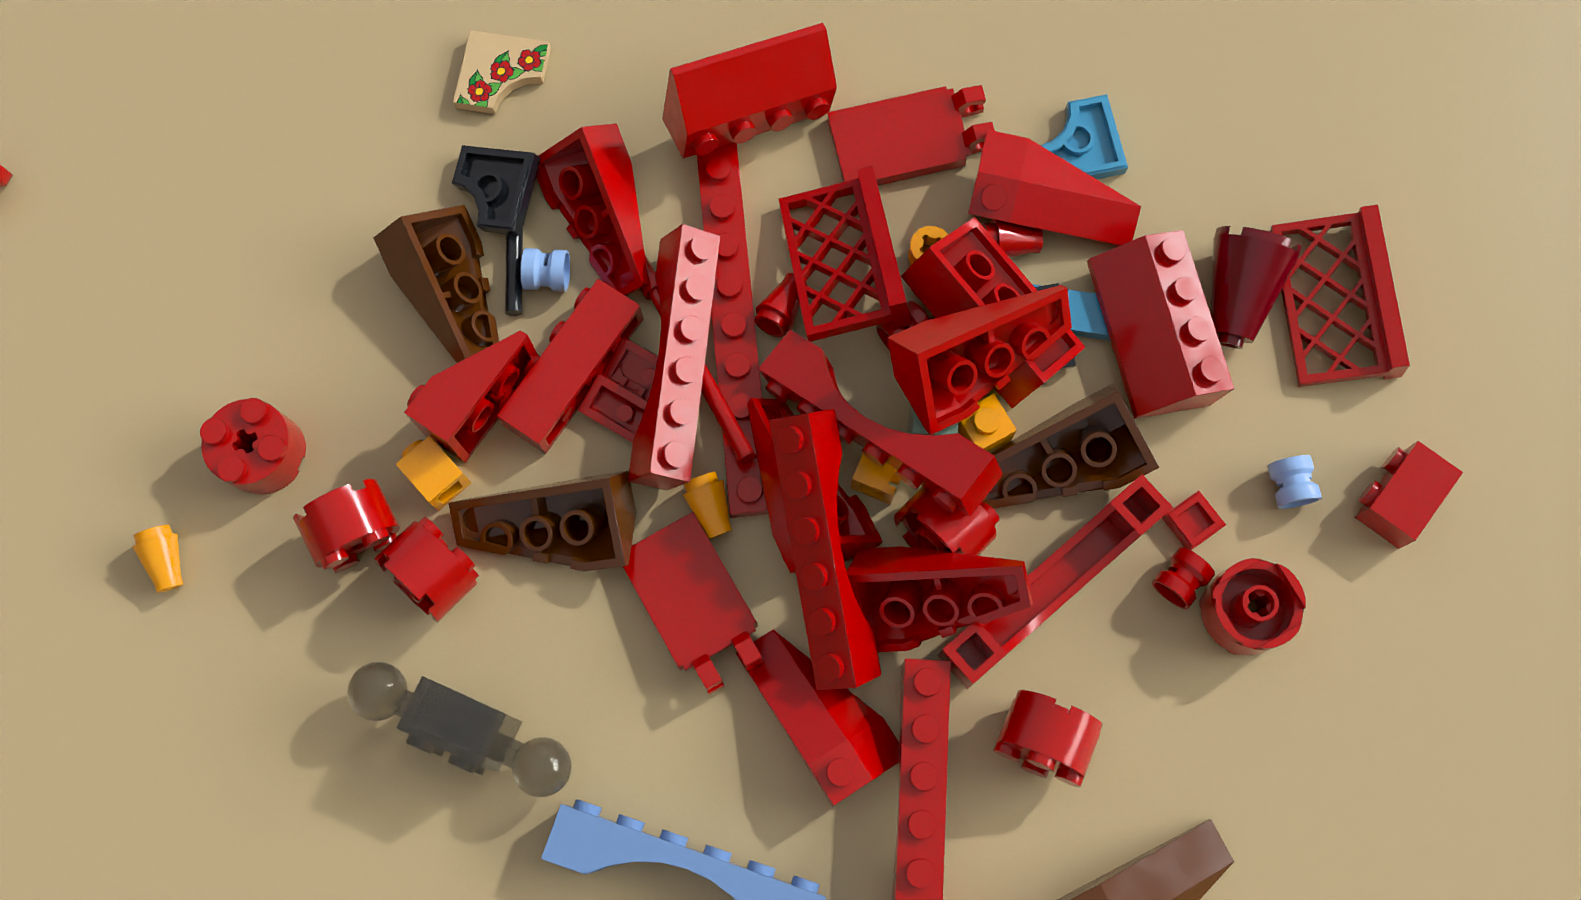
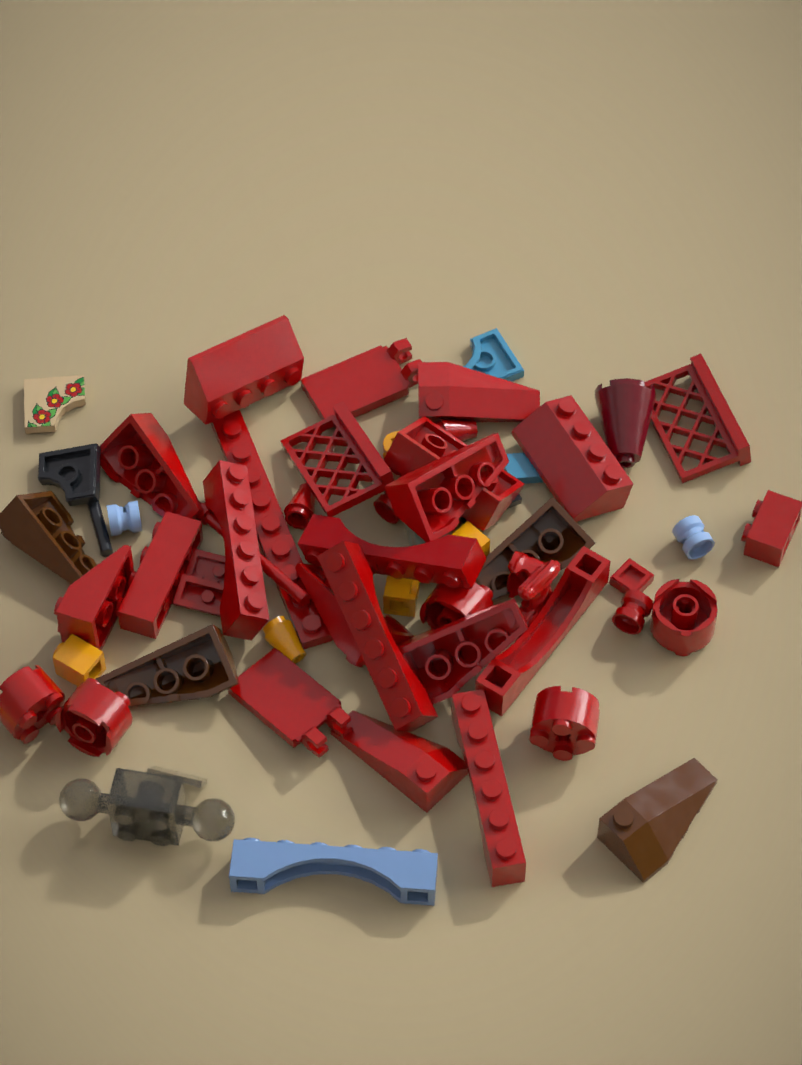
camera: 15 degrees left, 20 degrees down
(511, 686) = (187, 778): none -> clear smoke piece
(1062, 514) = (531, 582): none -> red hair

